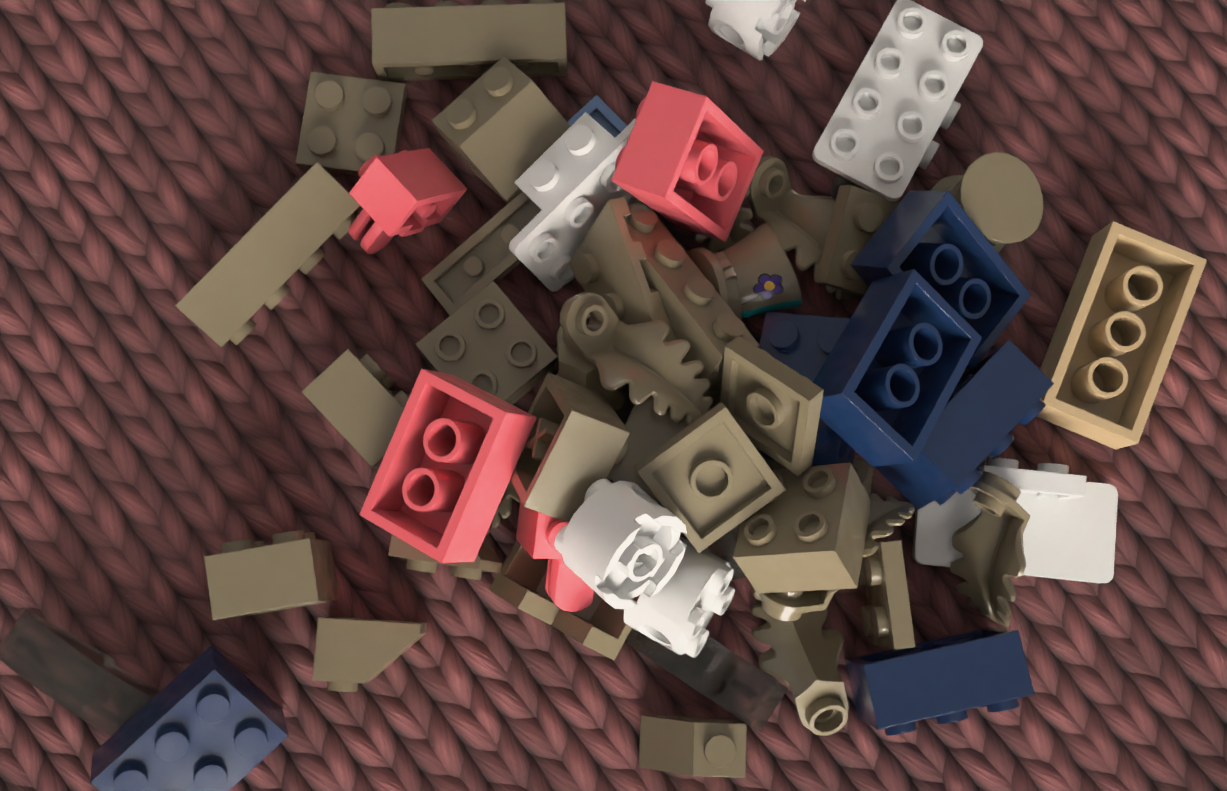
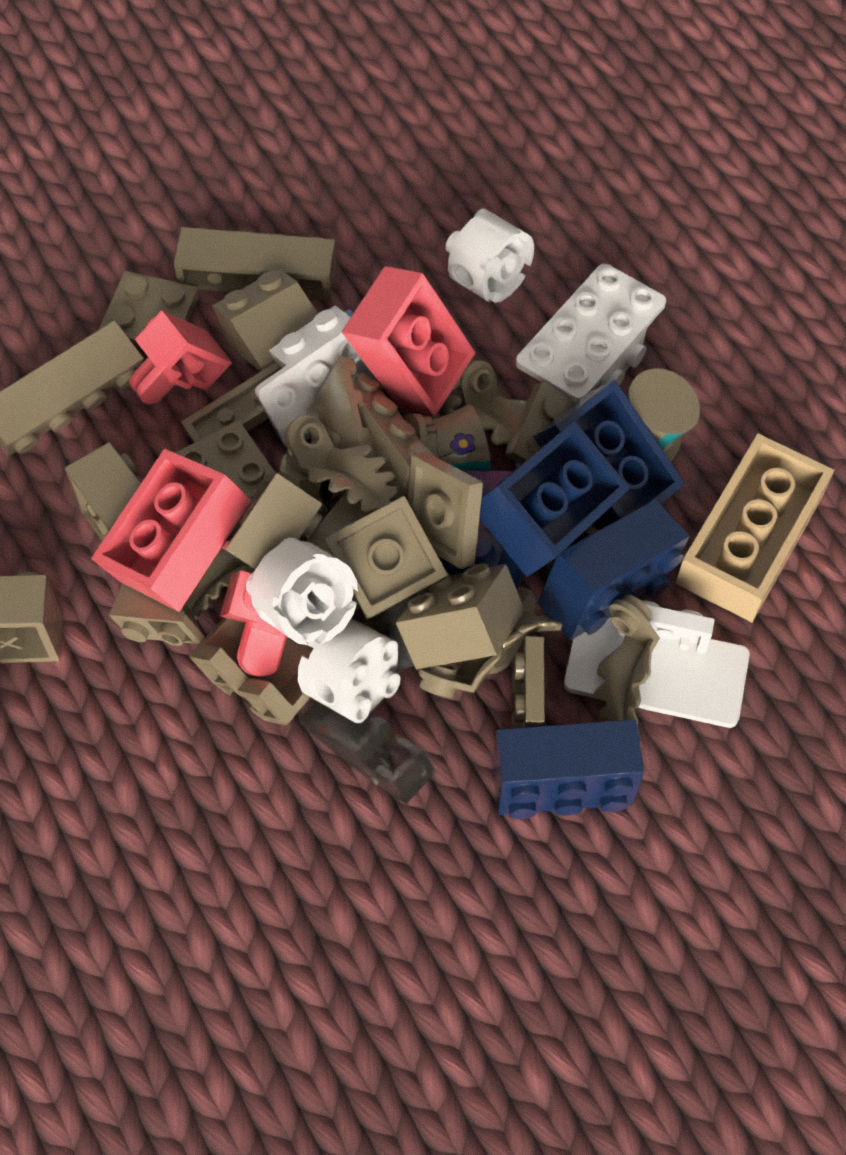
camera: 10 degrees right, 20 degrees down
(359, 649) = (72, 691): dark tan slope -> none
(693, 745) = (346, 807): dark tan slope -> none
(806, 662) = (455, 750): dark tan plant -> none

